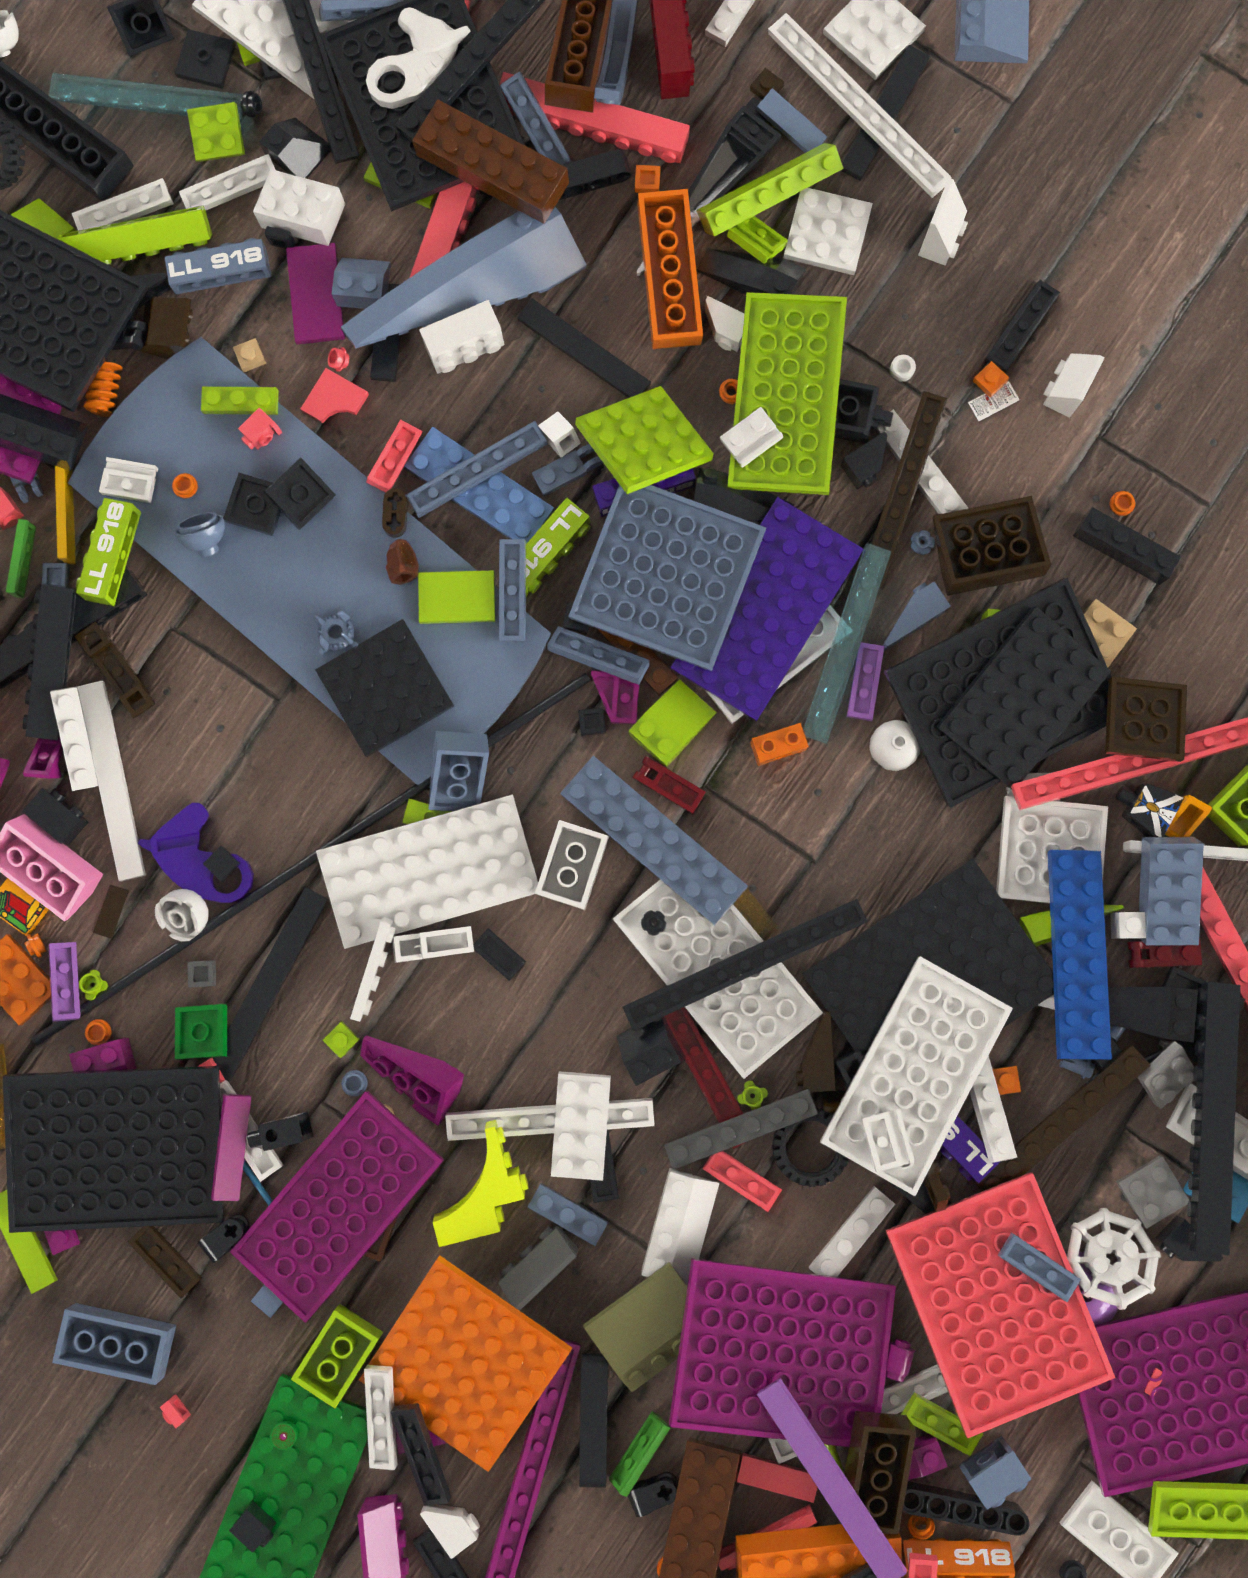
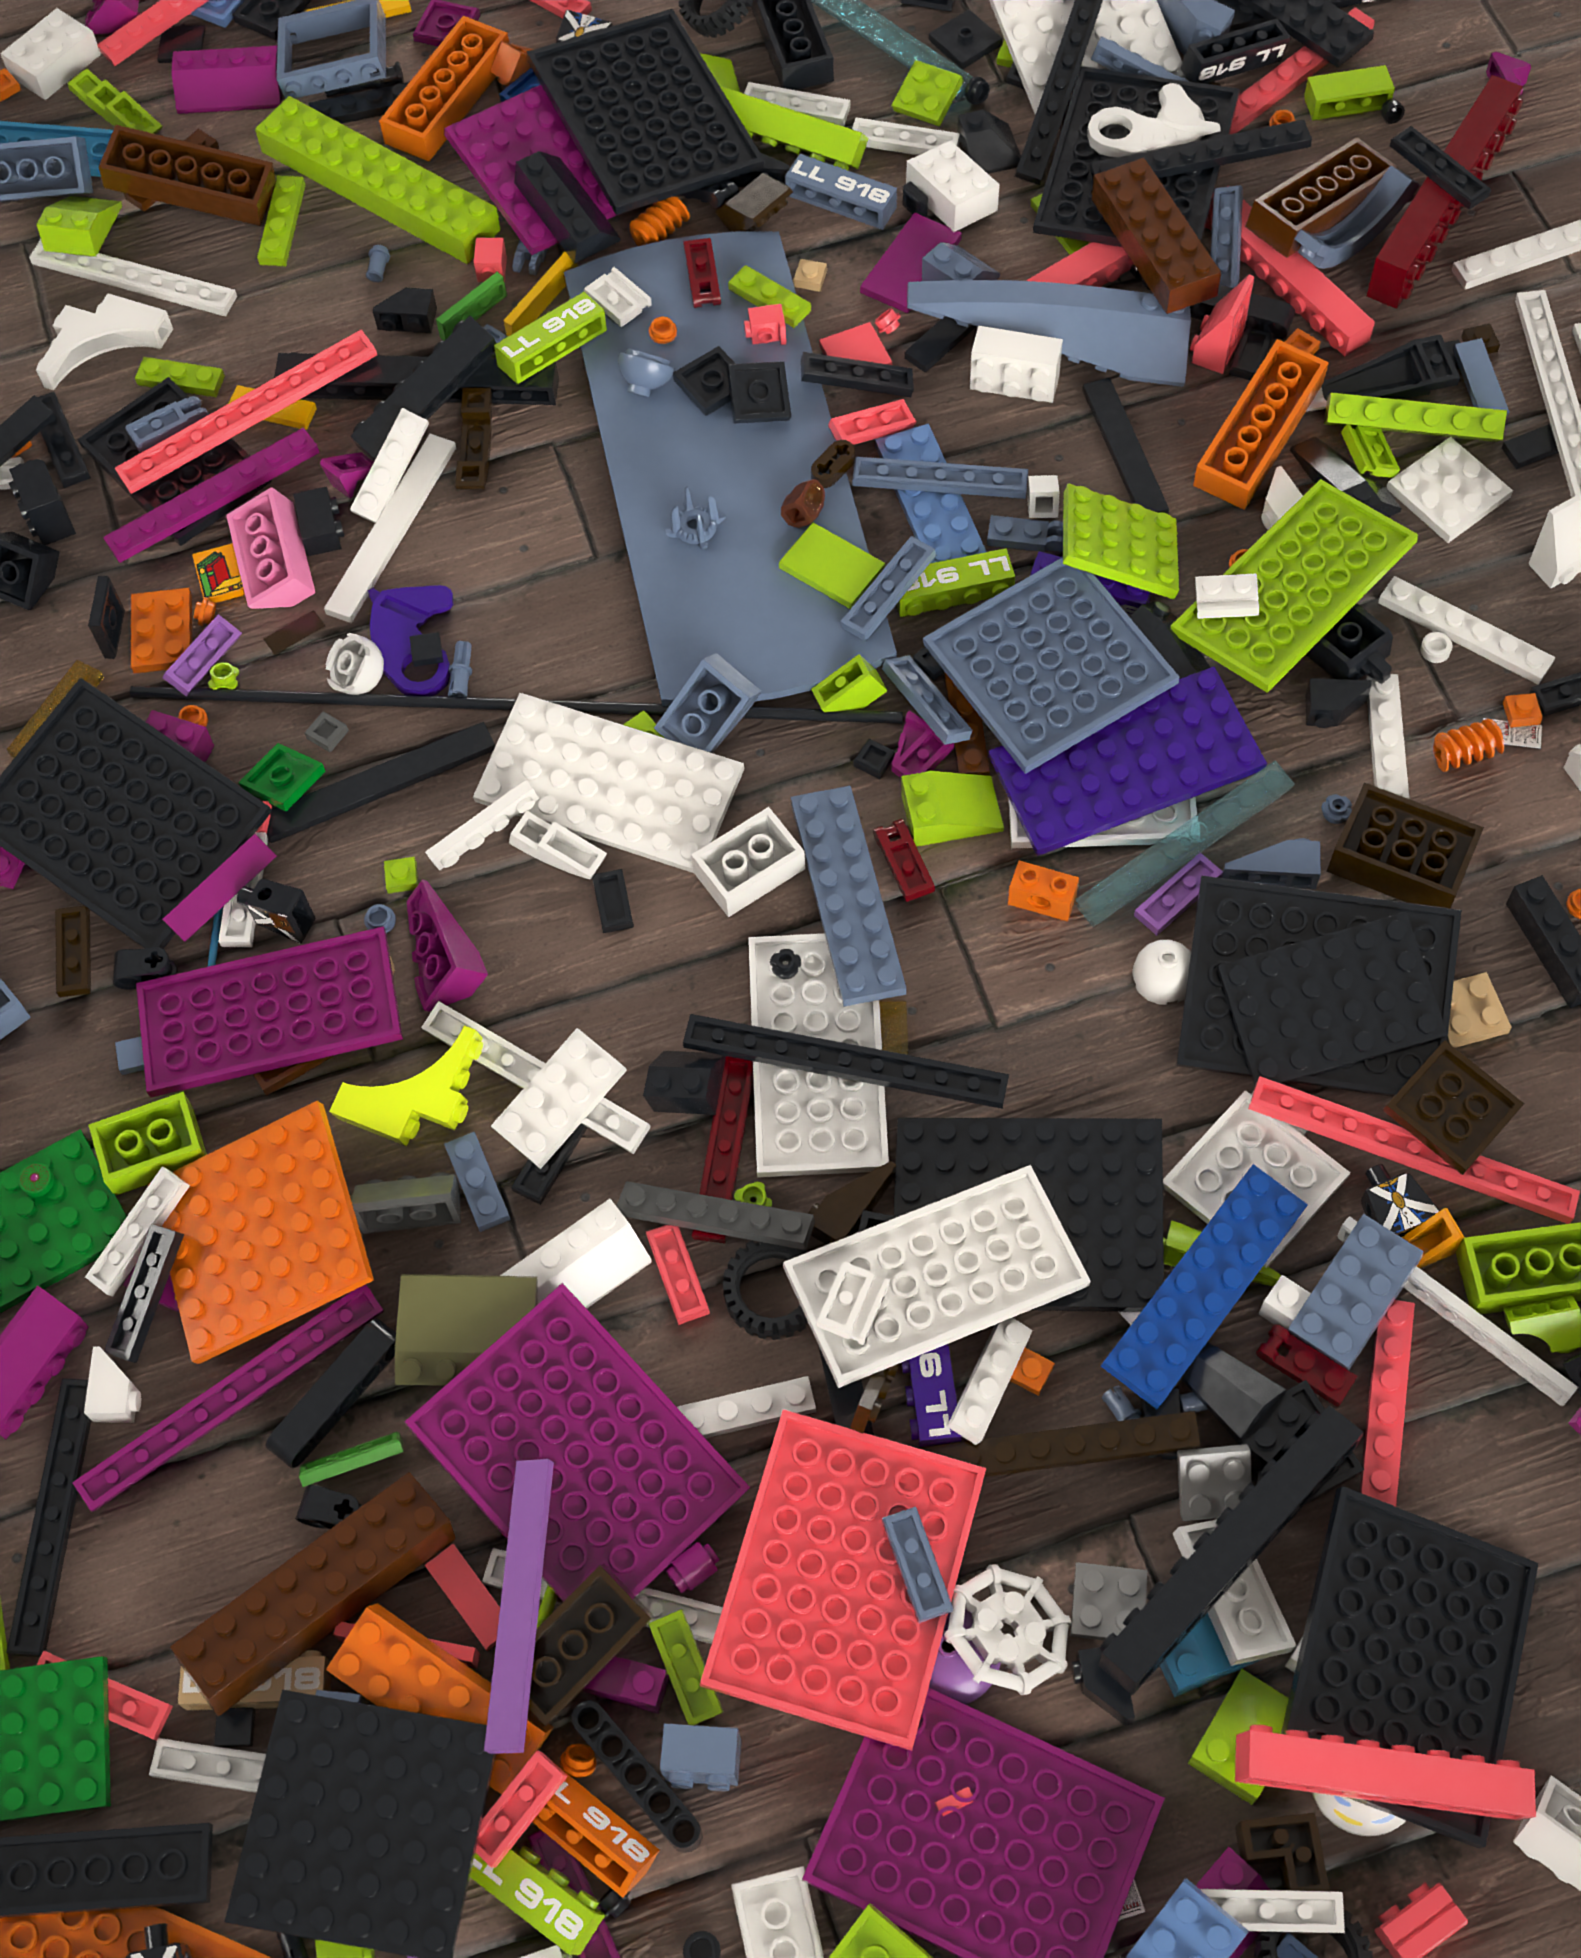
camera: 35 degrees right, 20 degrees down
(174, 414) = (702, 272): none -> dark red plate
(256, 859) = (460, 670): none -> sand blue axle
(353, 423) = (857, 374): none -> black plate
(384, 688) = (700, 598): black plate -> none
(538, 683) = (850, 687): none -> lime slope
(586, 204) = (1223, 329): none -> coral slope
(615, 207) = (1250, 353): none -> black tile
(908, 474) = (1361, 740): dark brown tile -> none
(915, 340) = (1466, 630): none -> white plate
(975, 433) = (1468, 743): none -> orange piece

